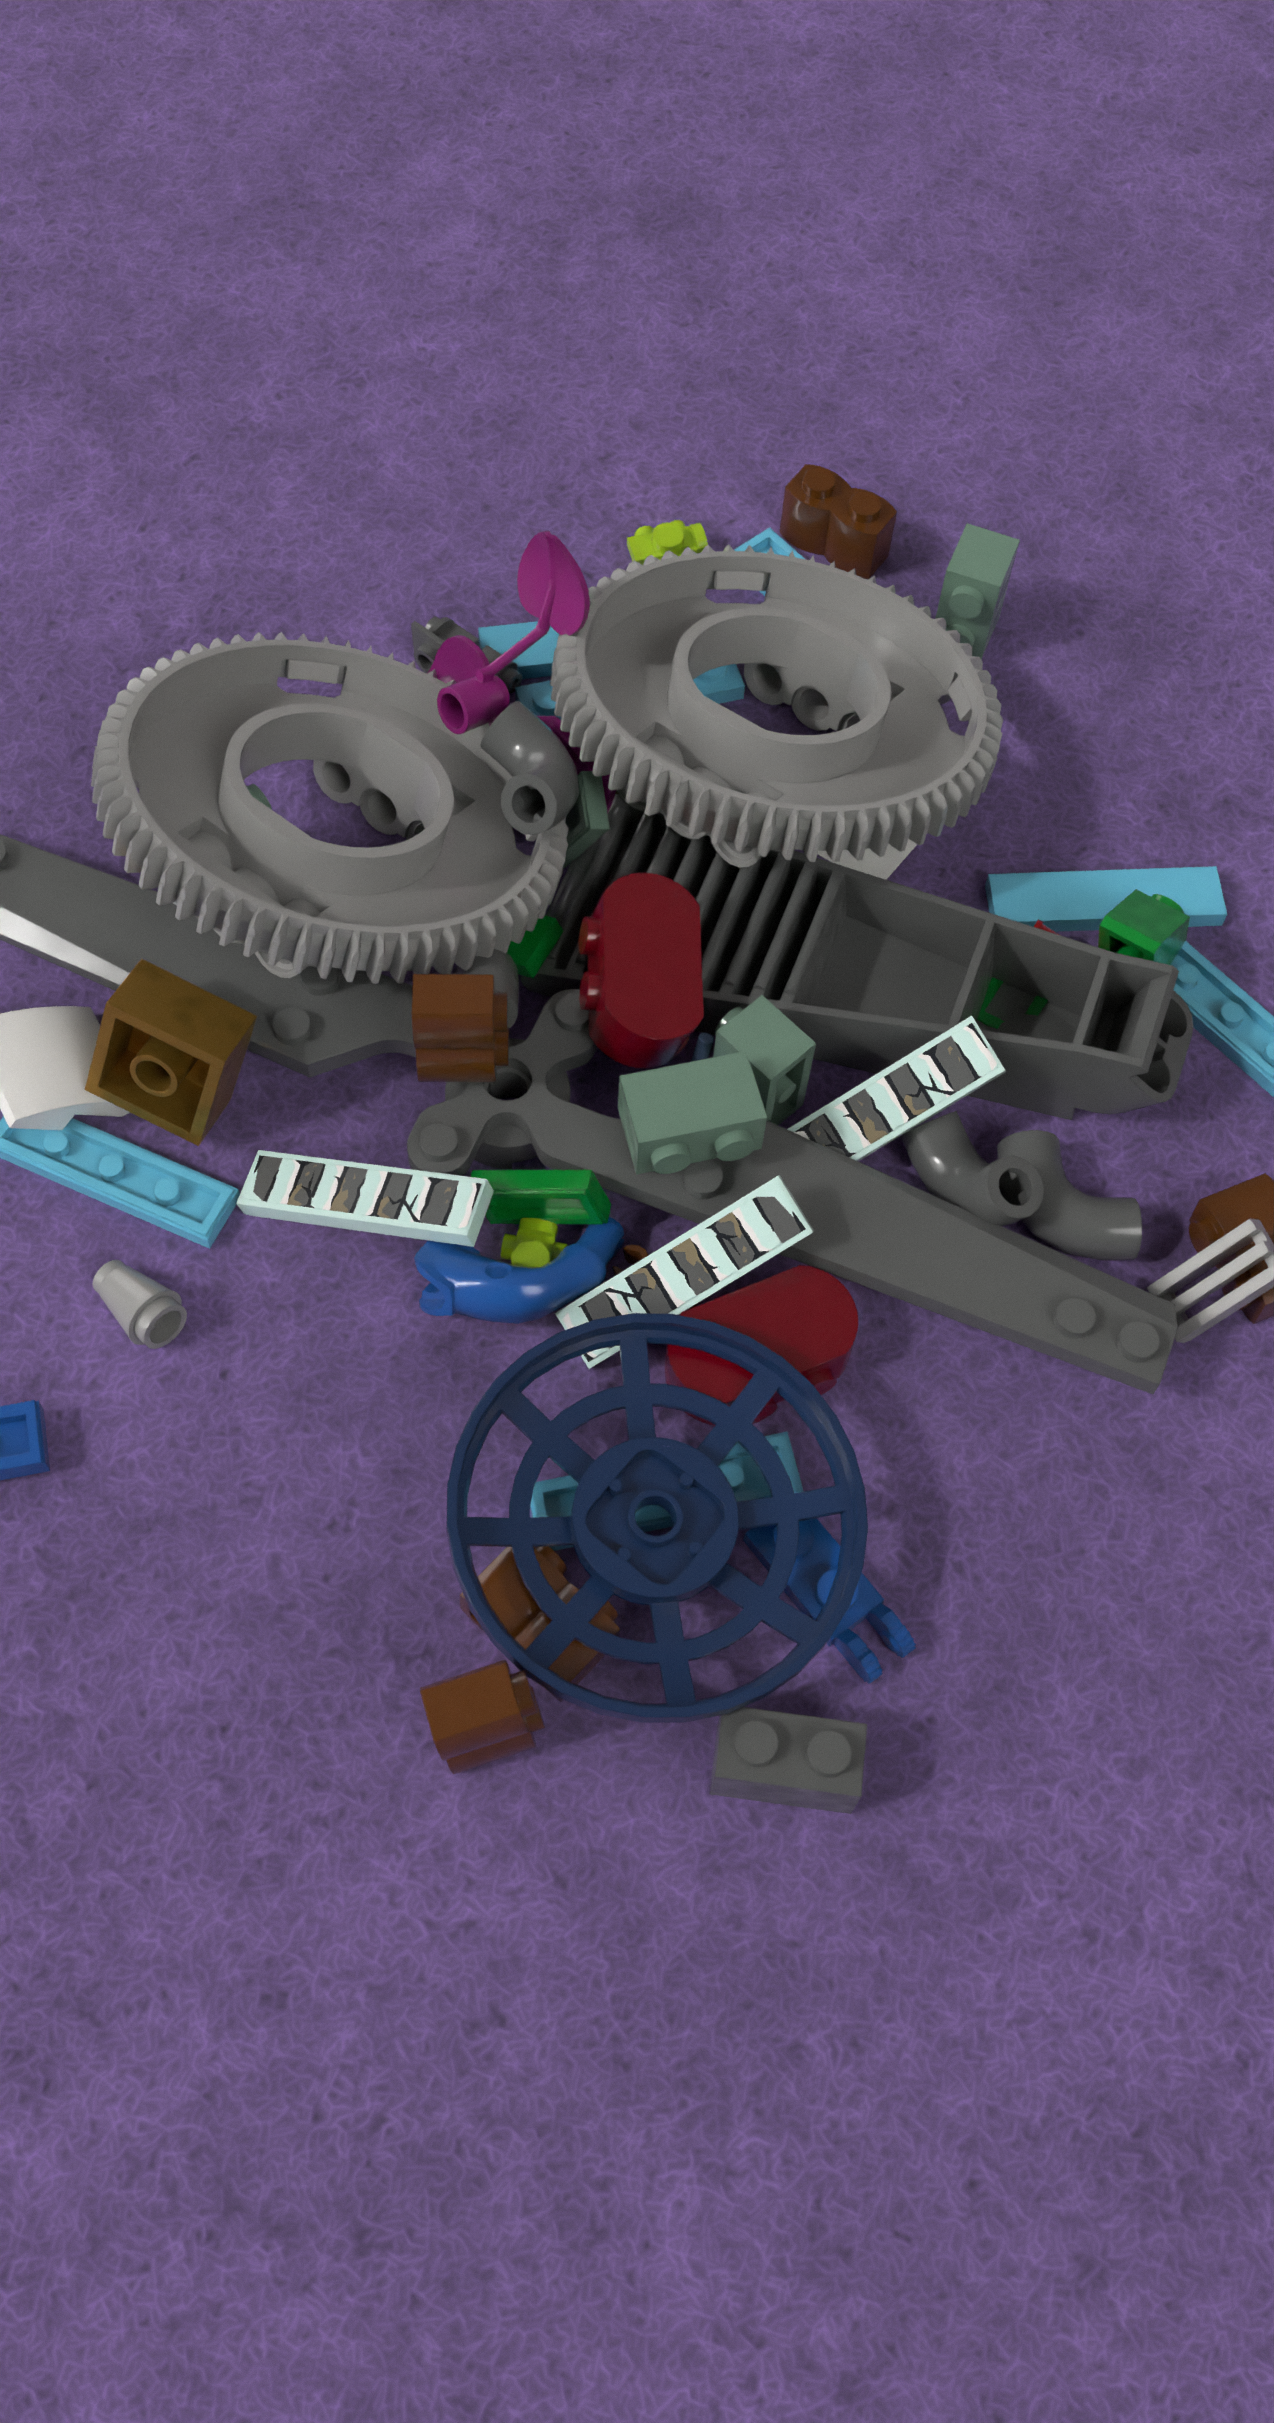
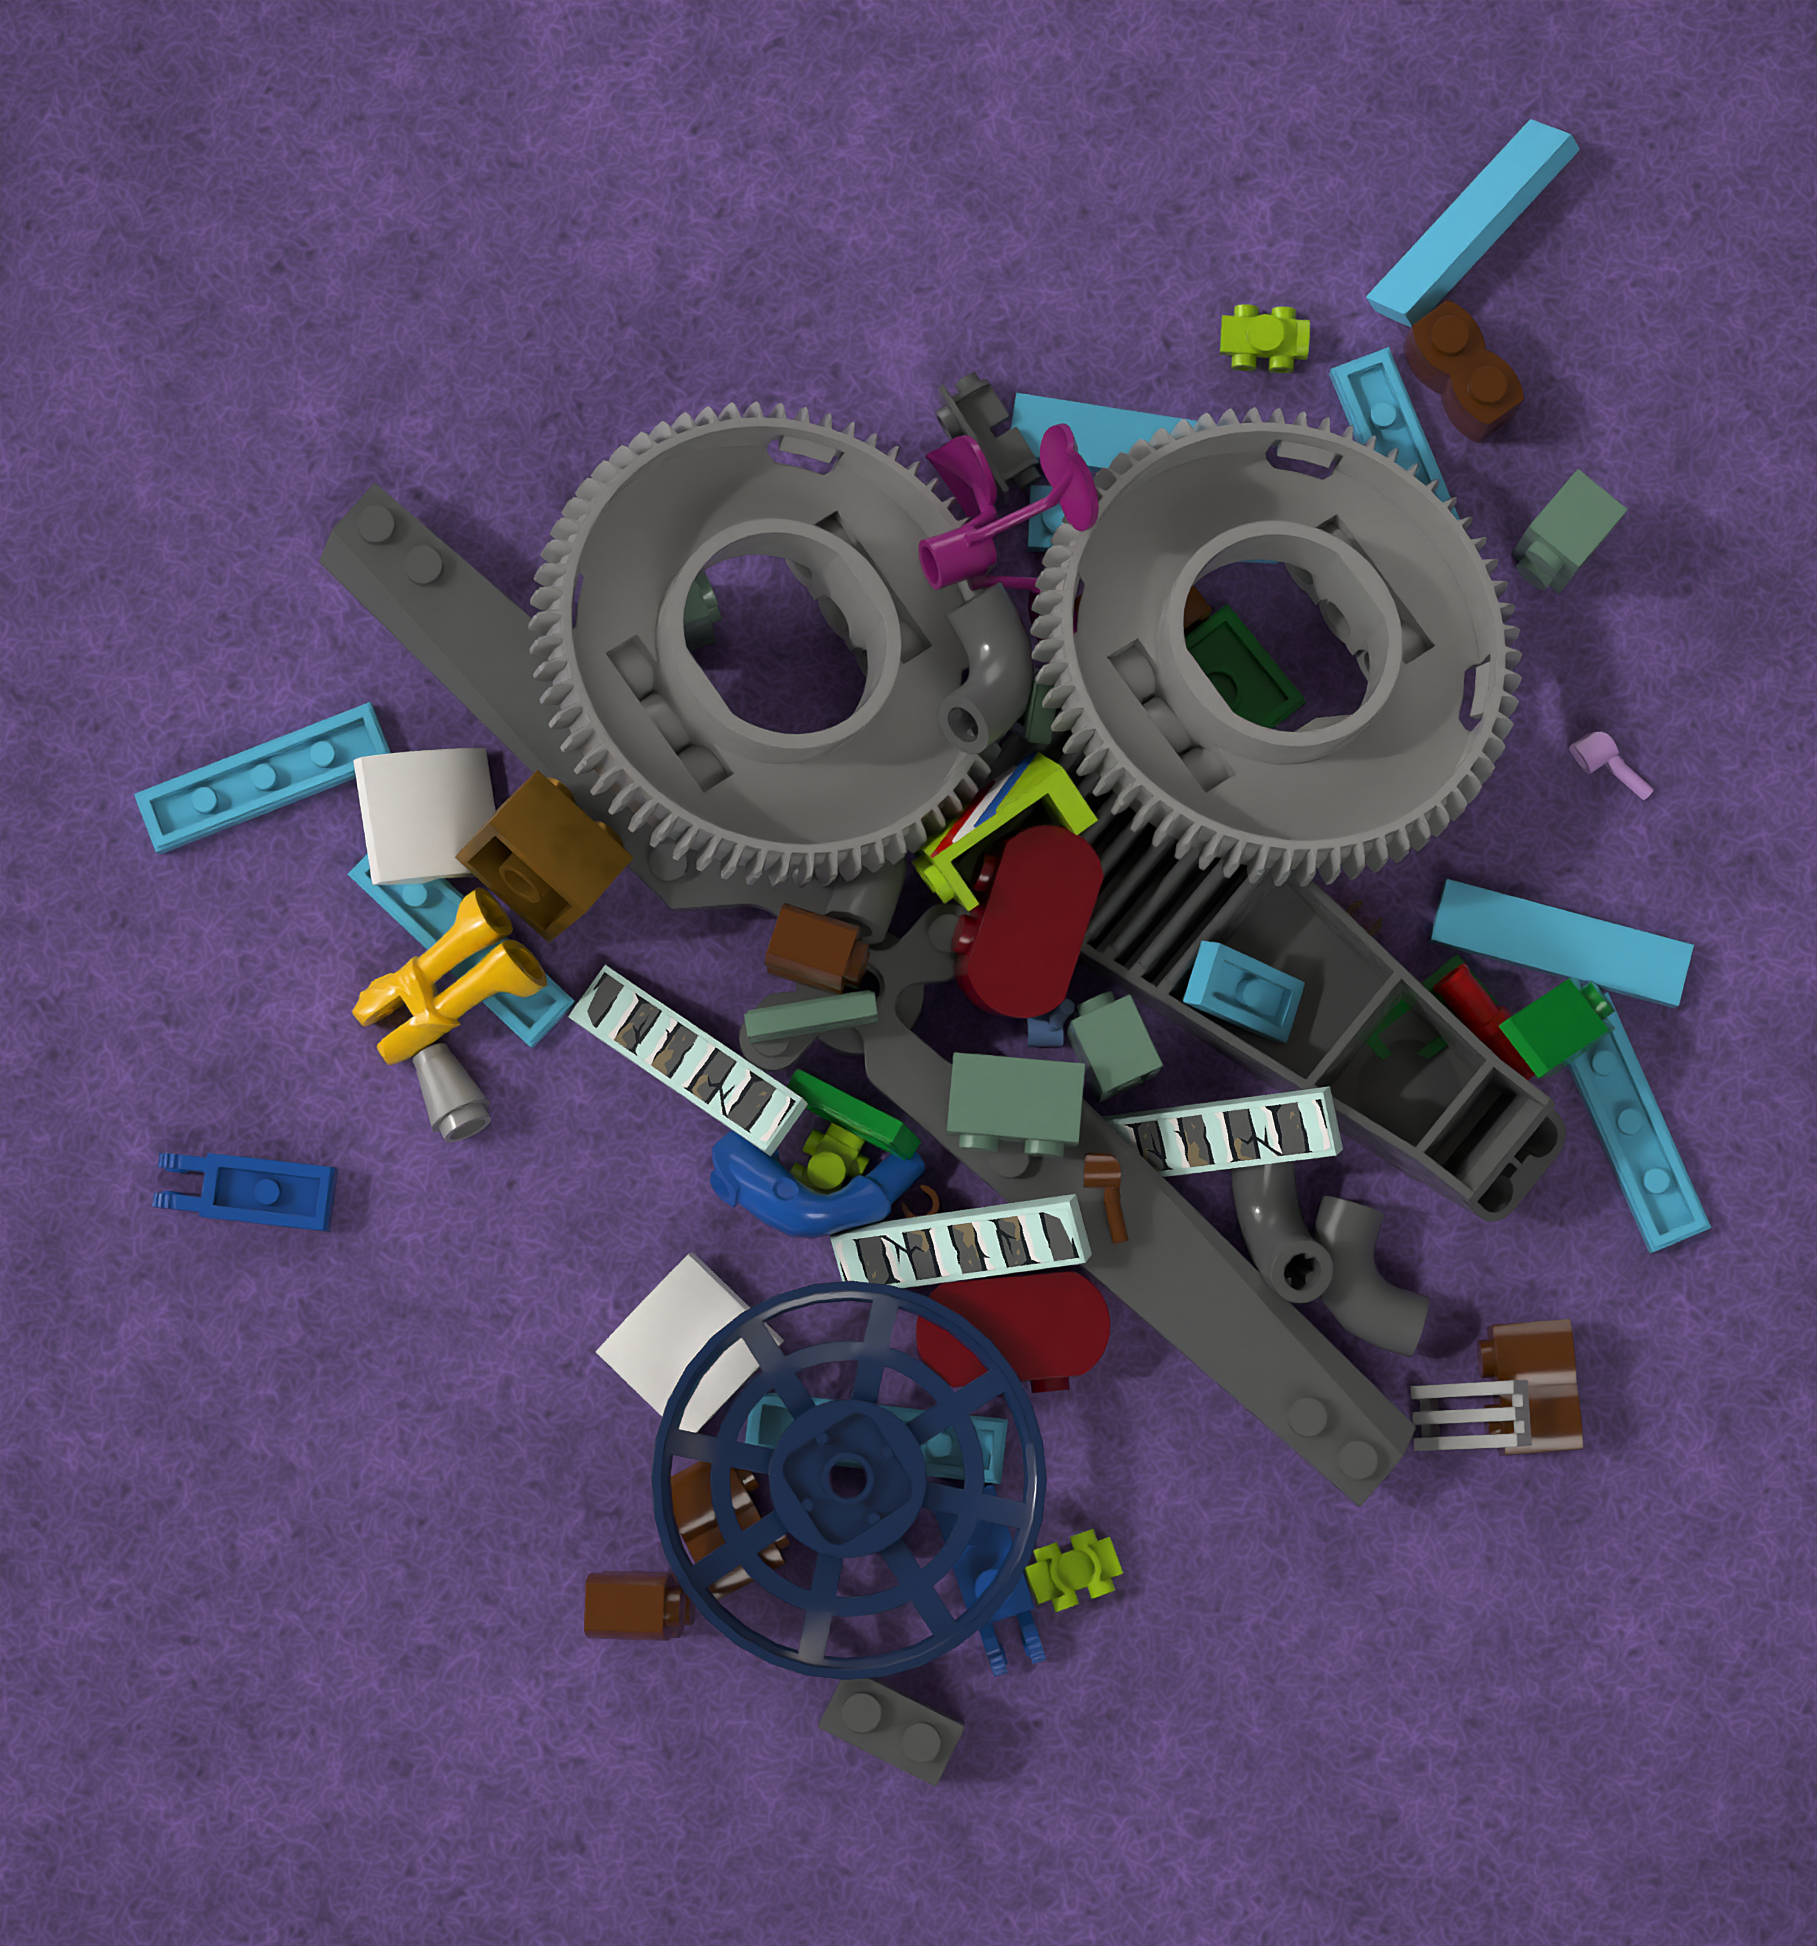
camera: 25 degrees right, 20 degrees up
(104, 1232) = (505, 968): none -> yellow piece
(418, 1453) = (668, 1333): none -> white slope
(472, 1098) = (811, 1016): none -> sand green tile
(553, 938) = (991, 807): none -> lime panel
(799, 432) = (1473, 223): none -> medium azure tile
(799, 1153) = (1104, 1172): none -> reddish brown hand
(852, 983) = (1243, 991): none -> medium azure plate
(900, 1558) = (1060, 1575): none -> lime piece
(1069, 751) = (1599, 749): none -> lavender hand

